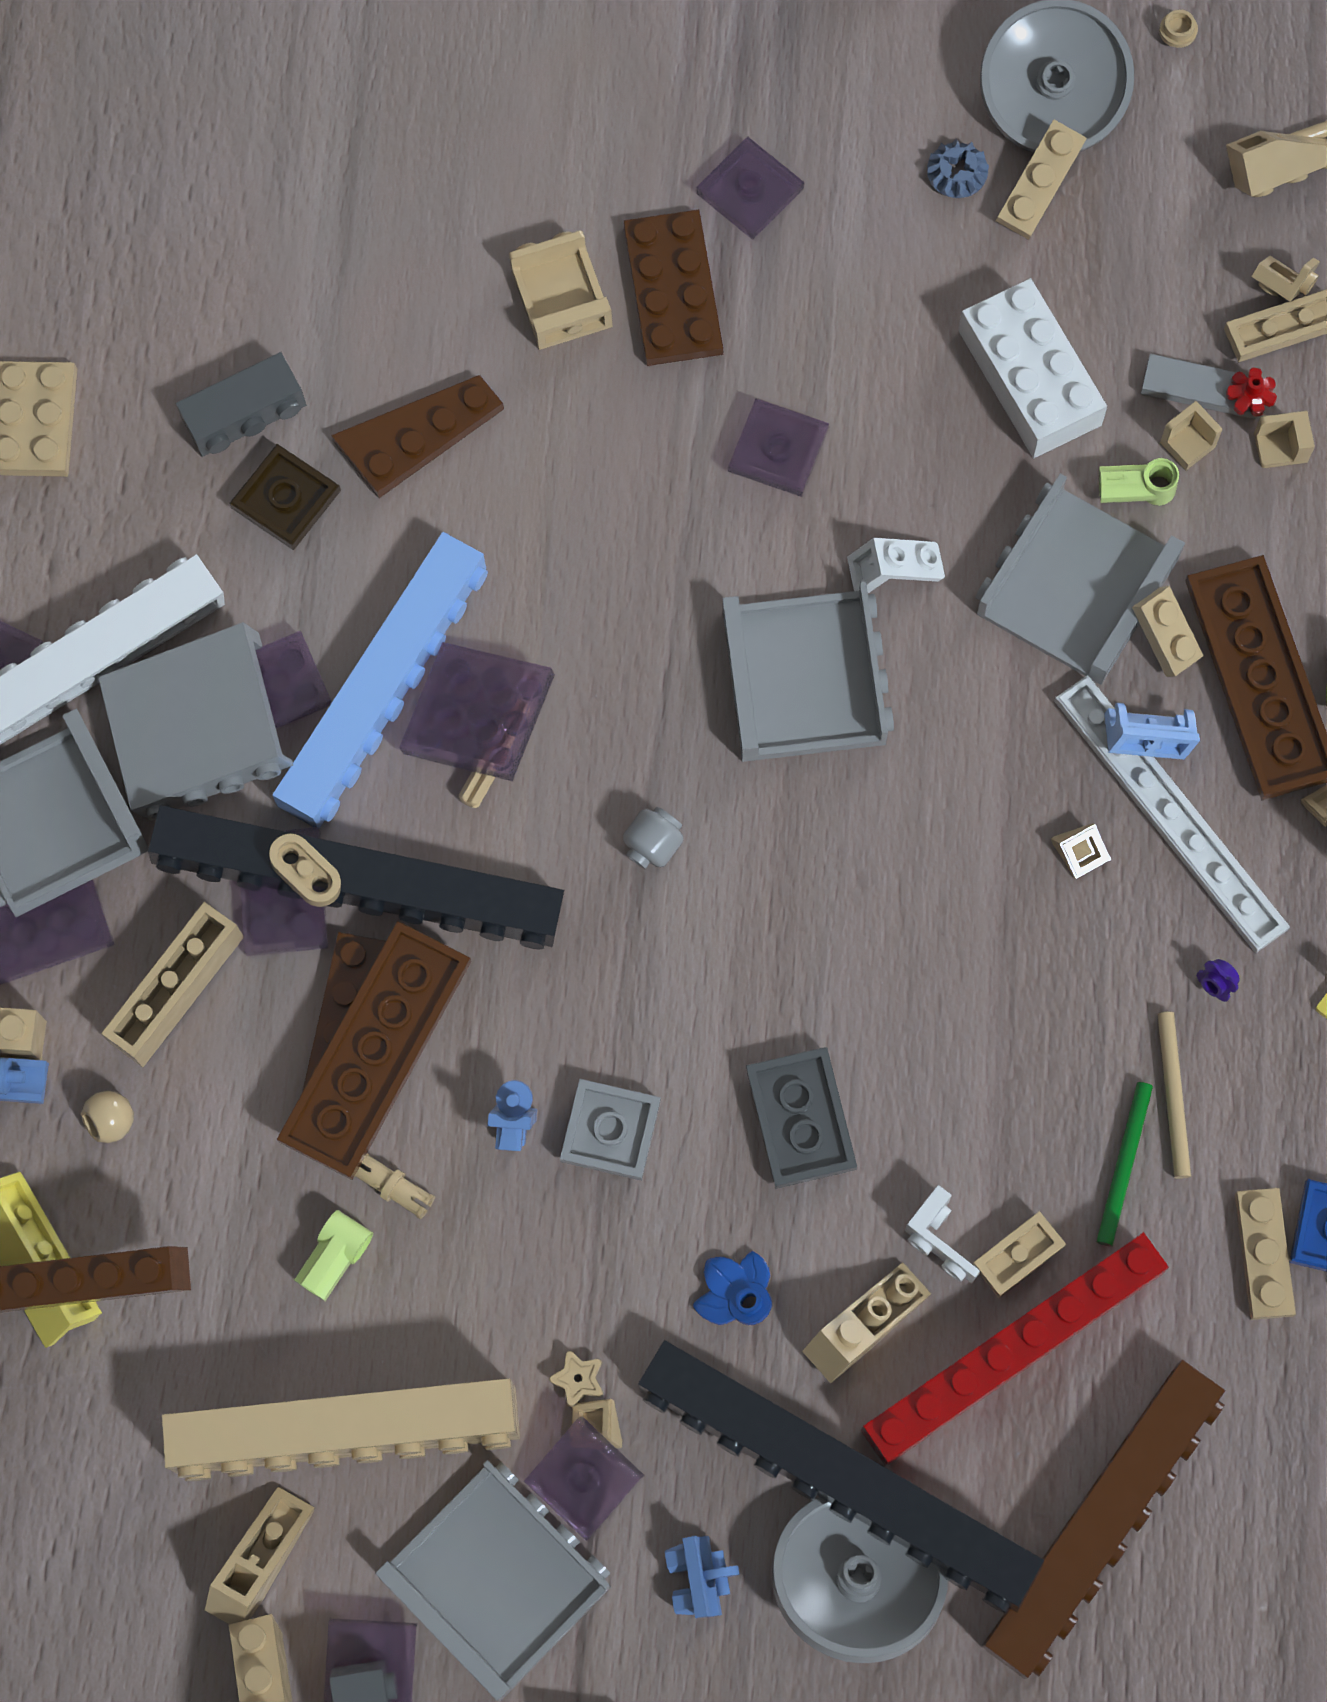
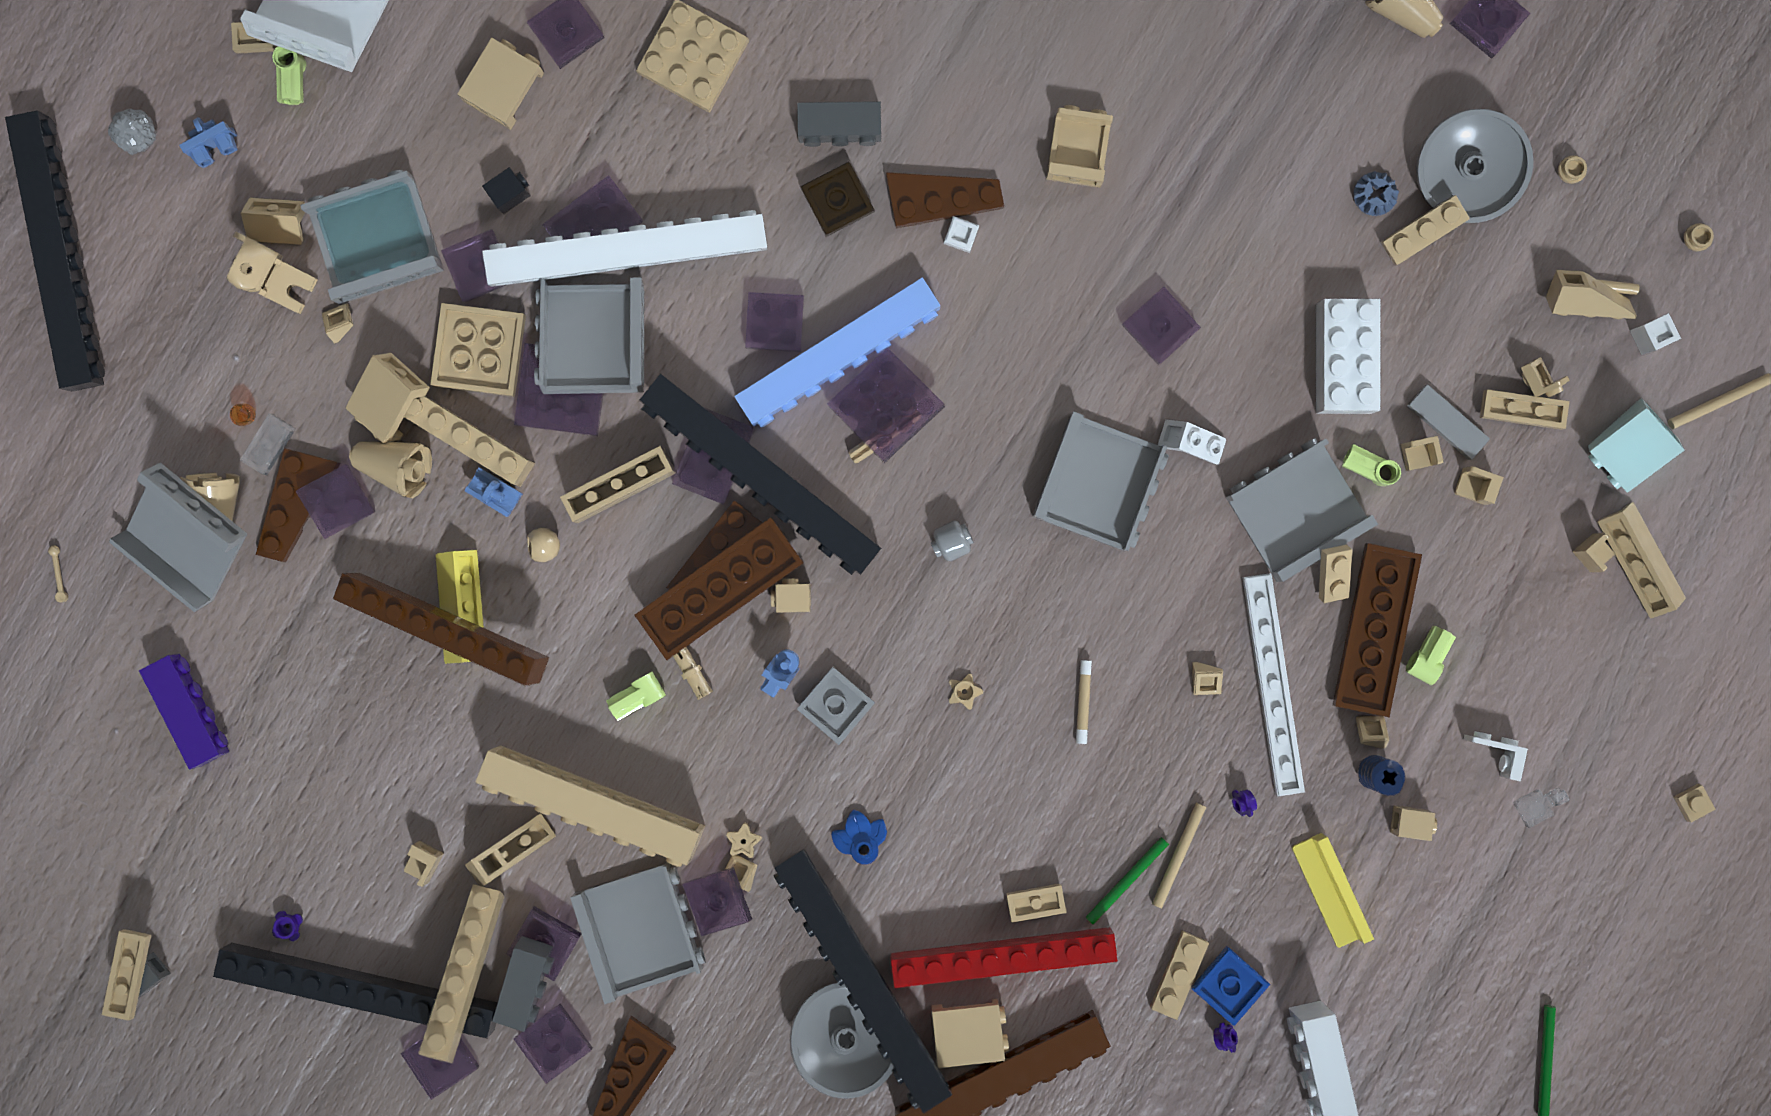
camera: 25 degrees right, 15 degrees up
(143, 1641) = (422, 862): none -> tan panel
(193, 722) = (707, 324): light grey panel -> none
(306, 871) = (729, 461): tan plate -> none
(466, 463) = (961, 234): none -> white tile
(478, 1016) = (791, 596): none -> tan brick
(673, 287) = (1152, 181): reddish brown plate -> none
(706, 1577) = (759, 992): medium blue hips -> none
(750, 187) = (1236, 137): clear purple plate -> none
(769, 1016) = (958, 696): none -> tan plate
(801, 1117) = (951, 756): dark grey plate -> none
(865, 1322) = (926, 896): tan slope -> none
(933, 1214) = (998, 854): white bracket -> none
(937, 959) = (1083, 702): none -> tan bar
(1025, 1478) = (969, 1034): none -> tan panel
(1150, 733) = (1289, 631): light blue hinge -> none
(1251, 392) = (1476, 444): red plant -> none

